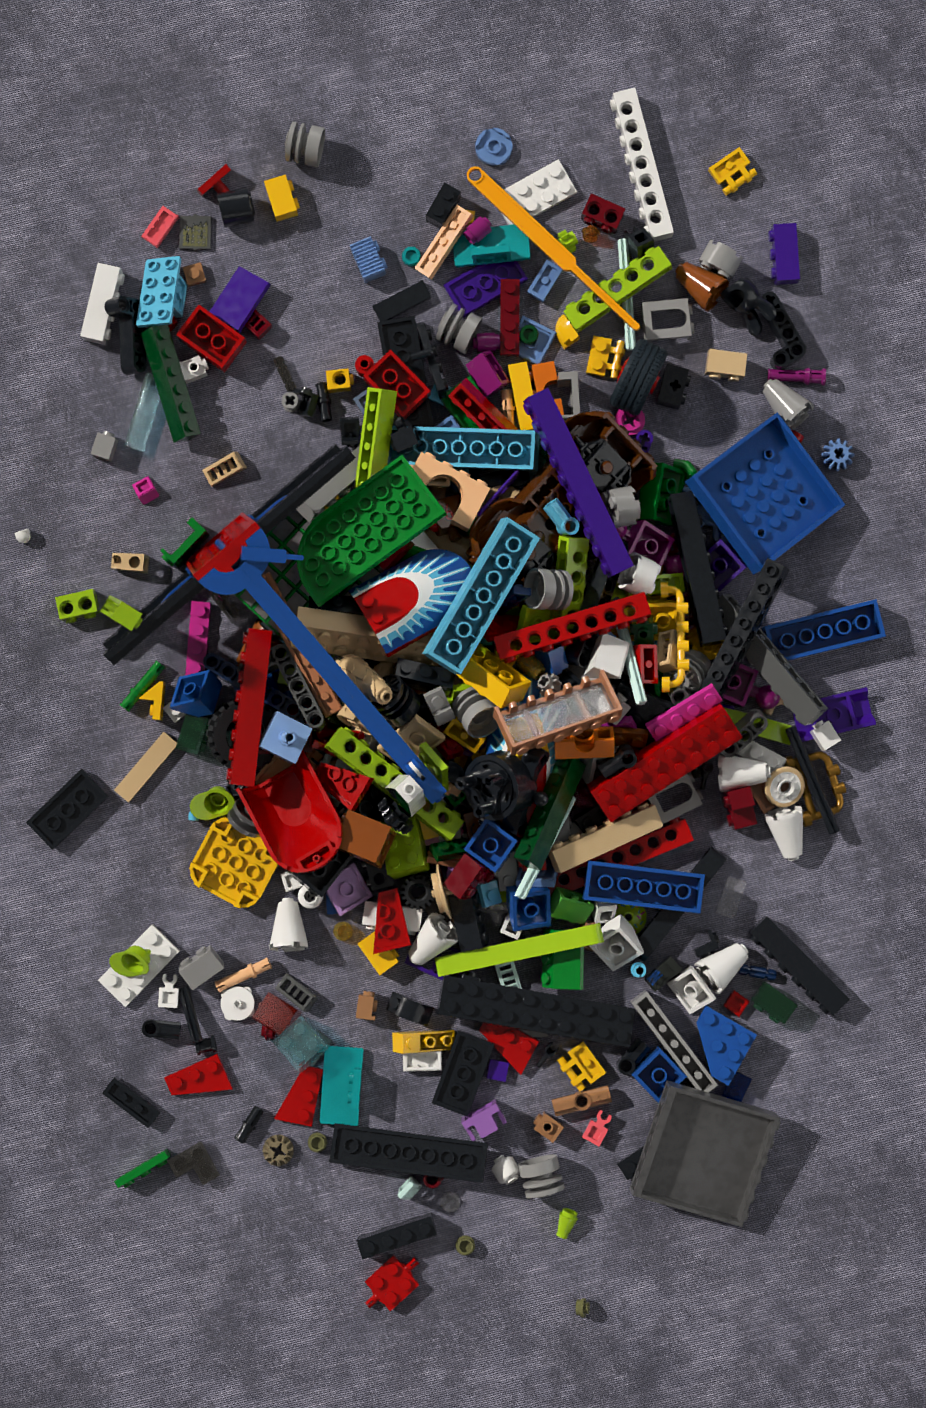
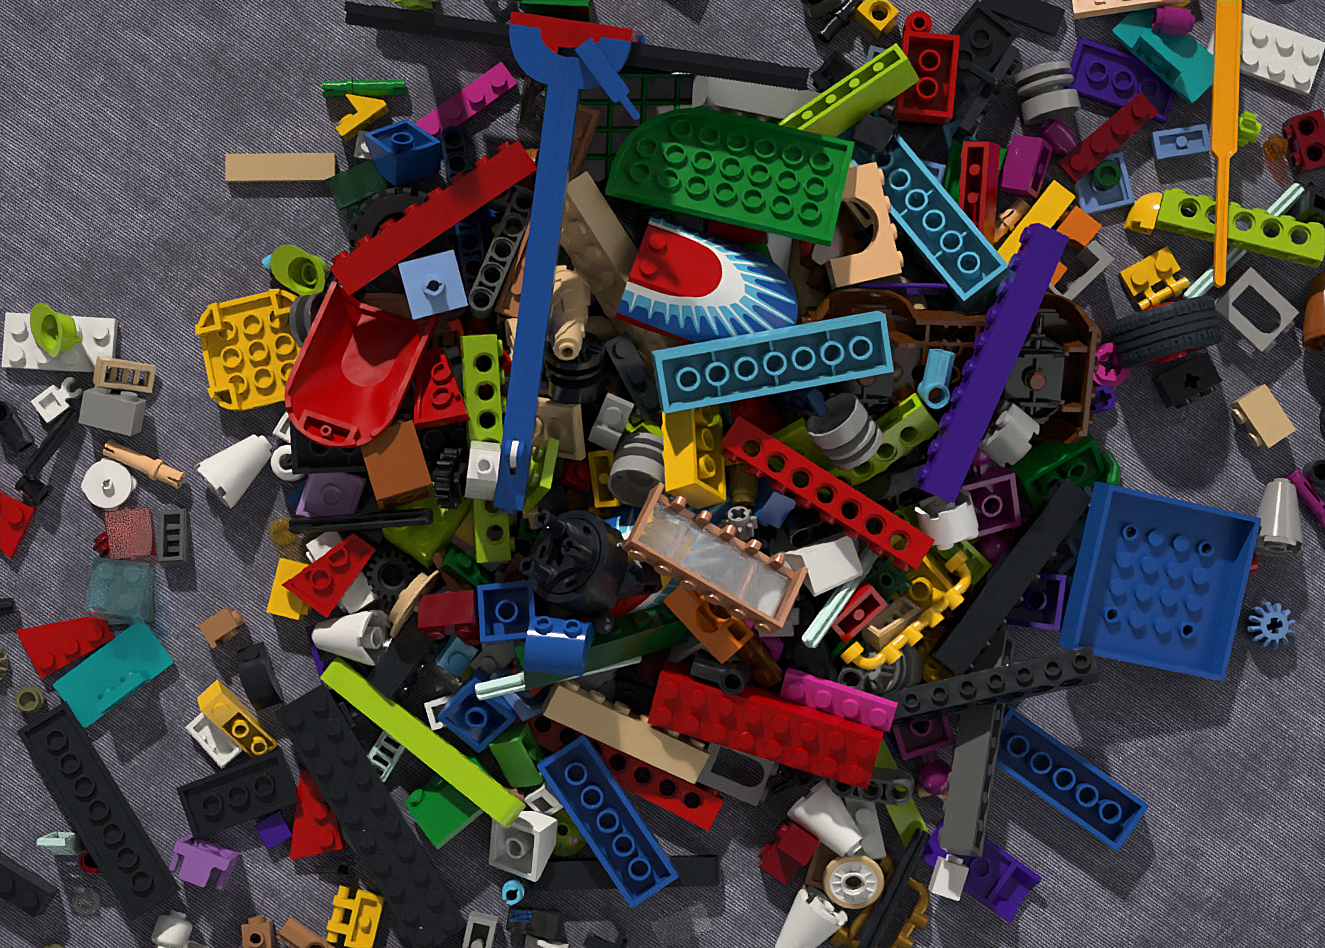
camera: 50 degrees right, 0 degrees up
(67, 809) = (162, 122): black plate -> none
(176, 948) = (100, 370): none -> tan slope
(376, 883) = (360, 521): none -> black axle
(532, 832) = (557, 645): none -> blue brick

